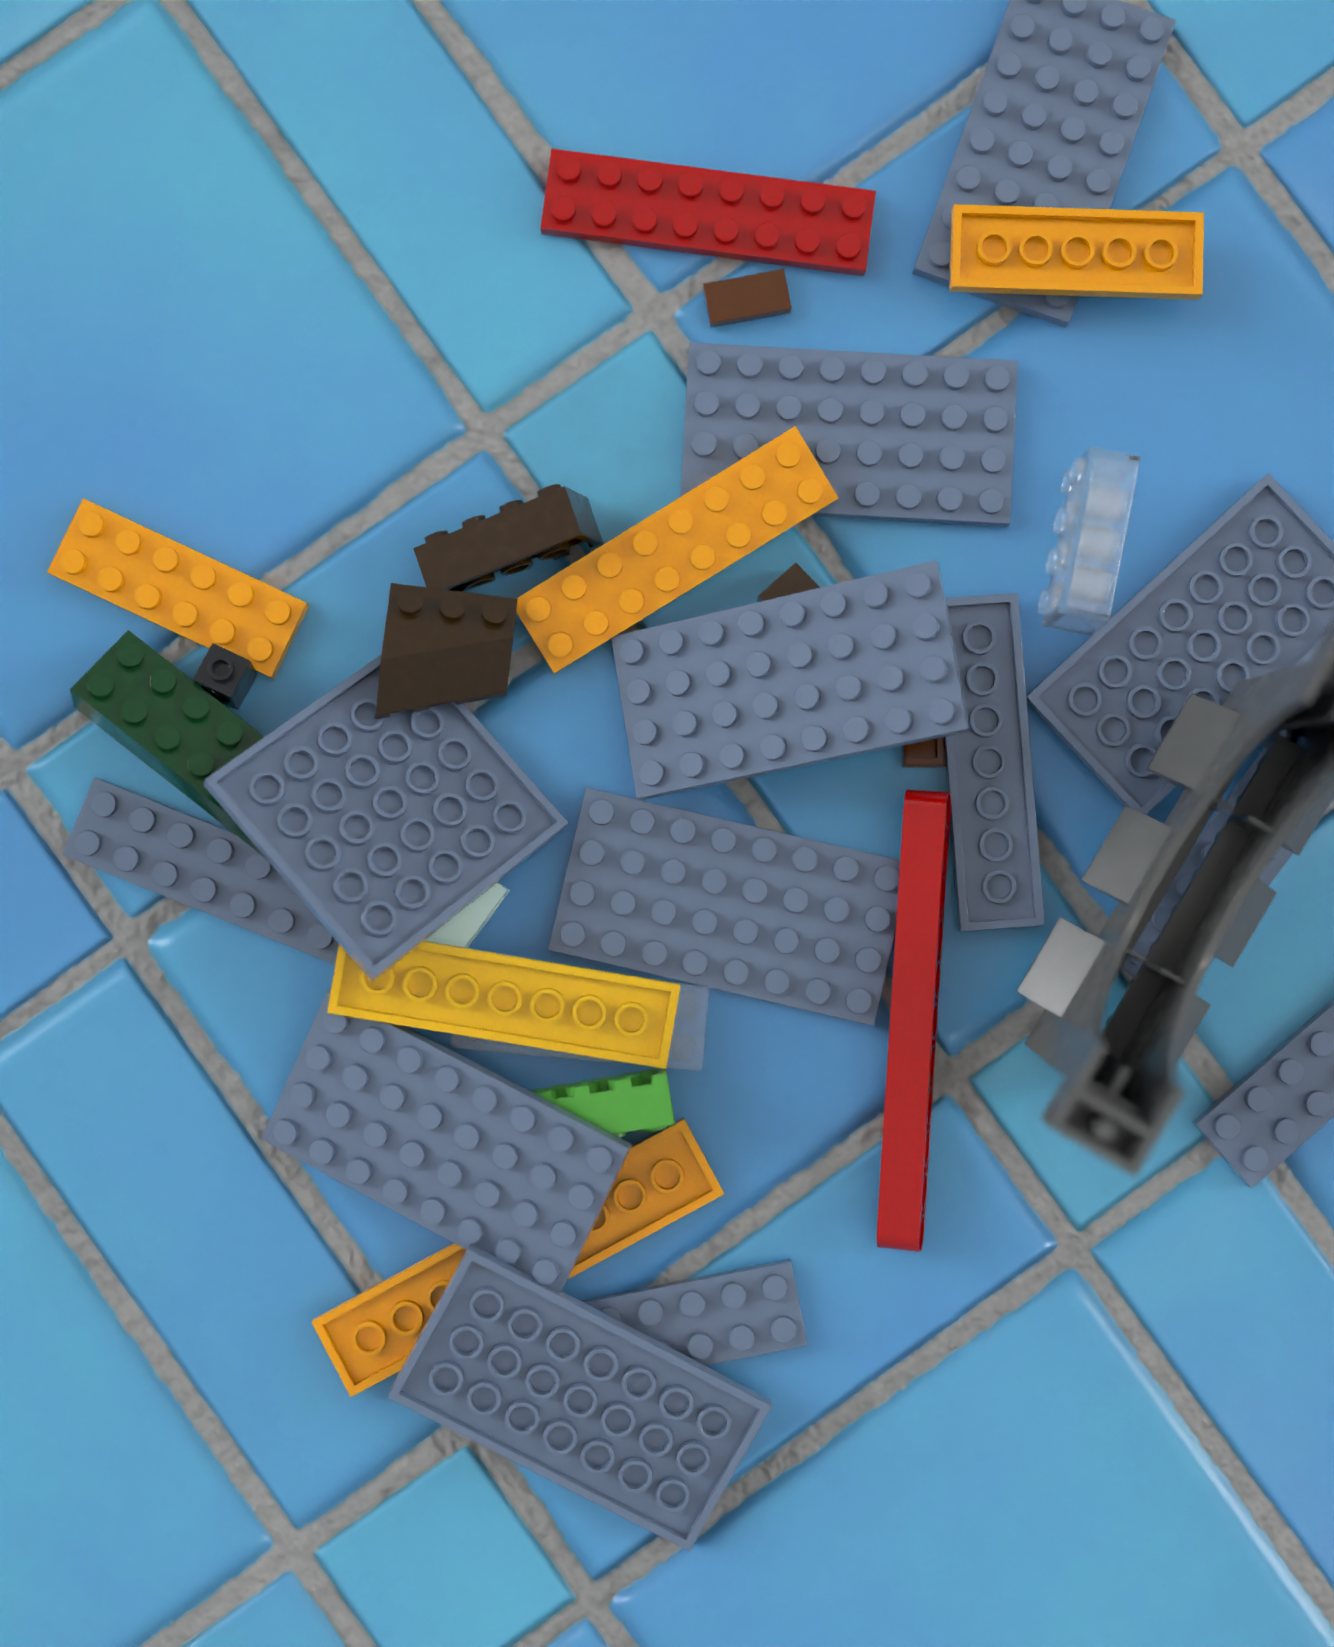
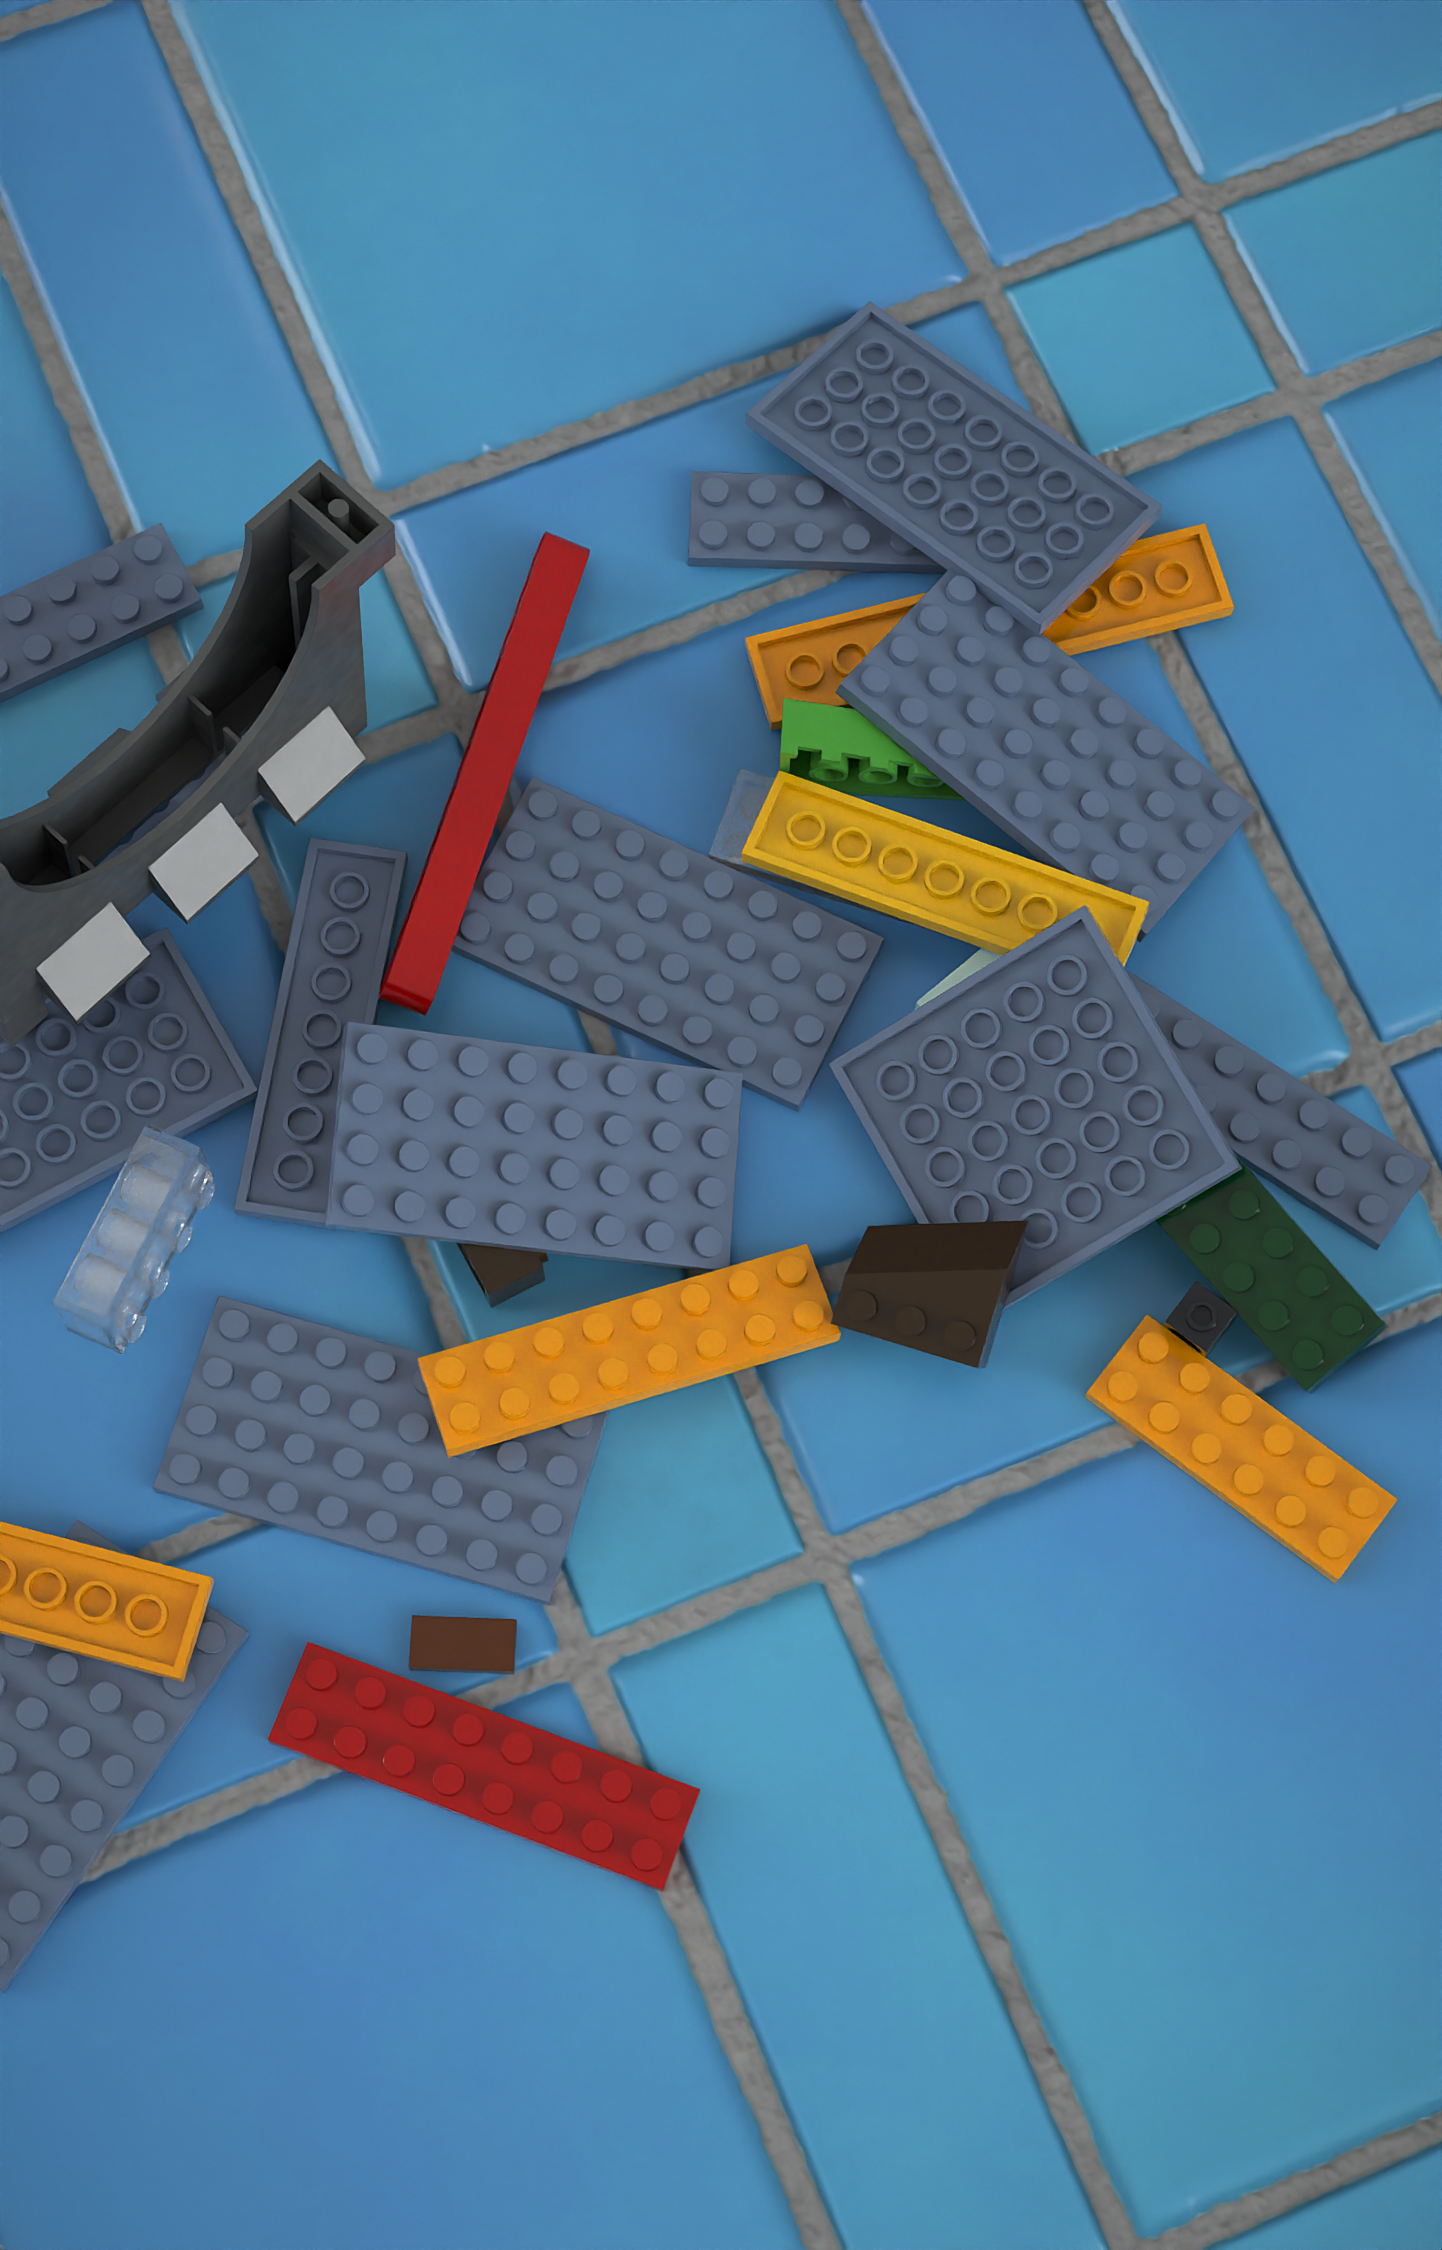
camera: 165 degrees left, 15 degrees down
(508, 540) = (826, 1400): dark brown wedge -> none

